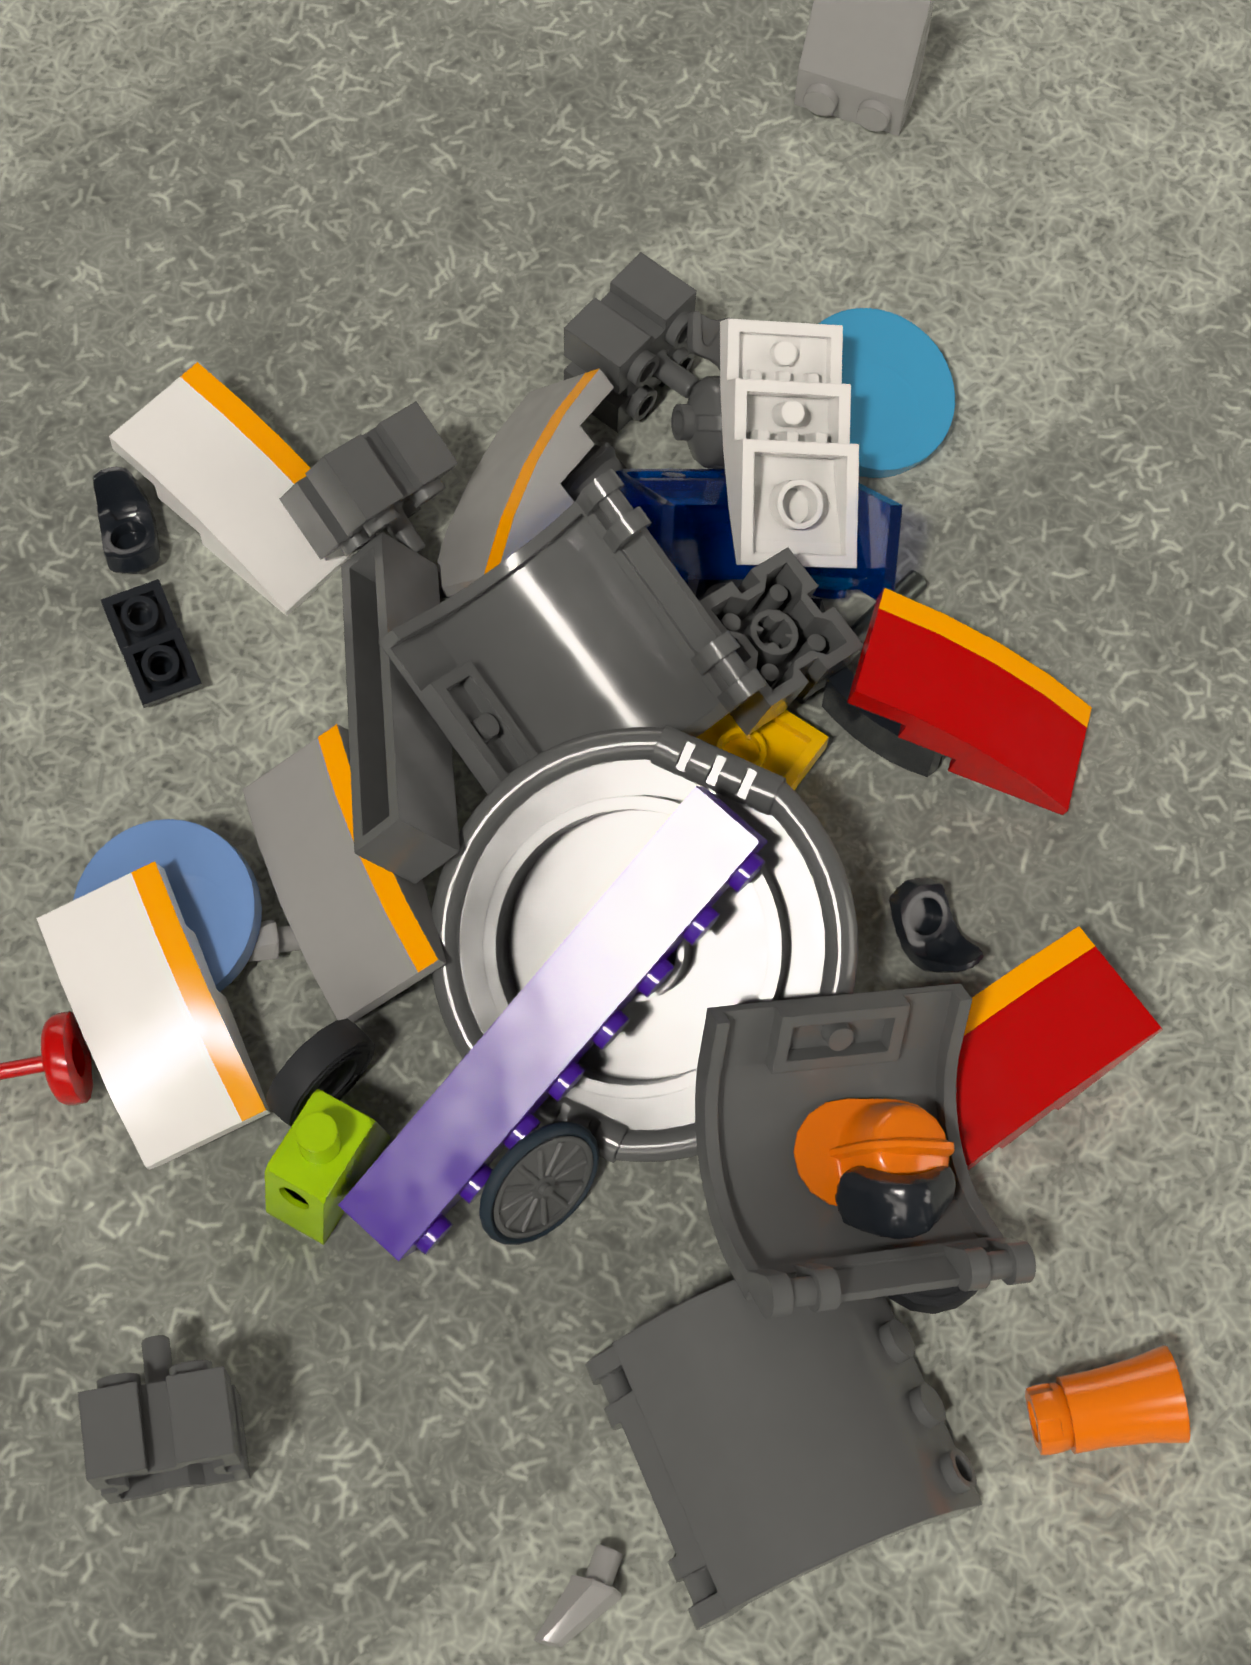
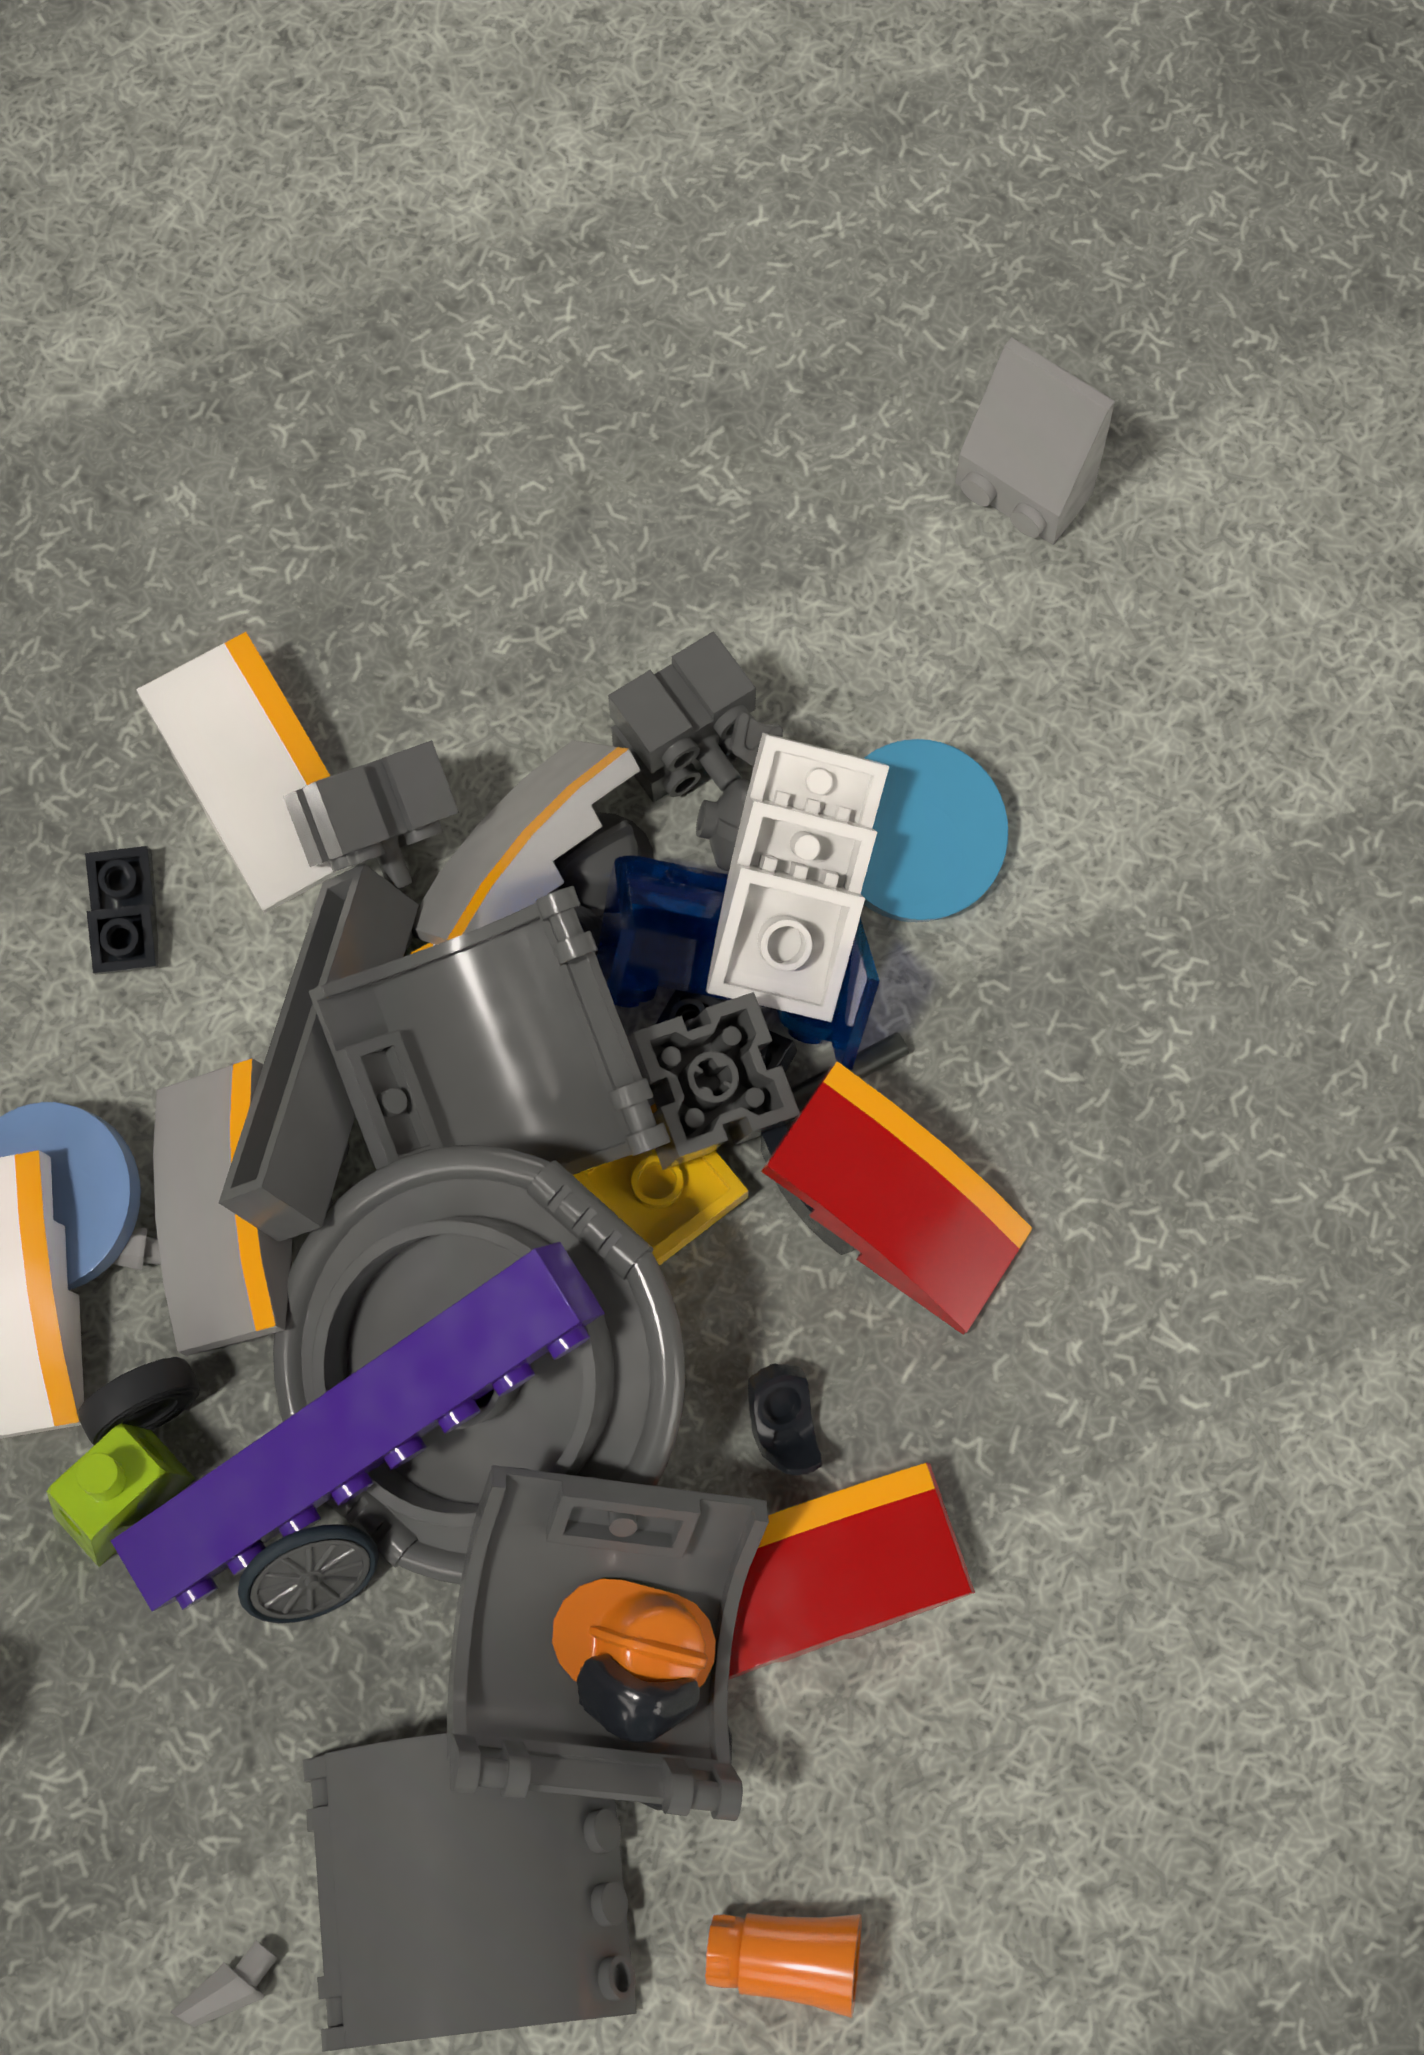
camera: 20 degrees right, 5 degrees up
(125, 521) = (135, 778): black hair -> none

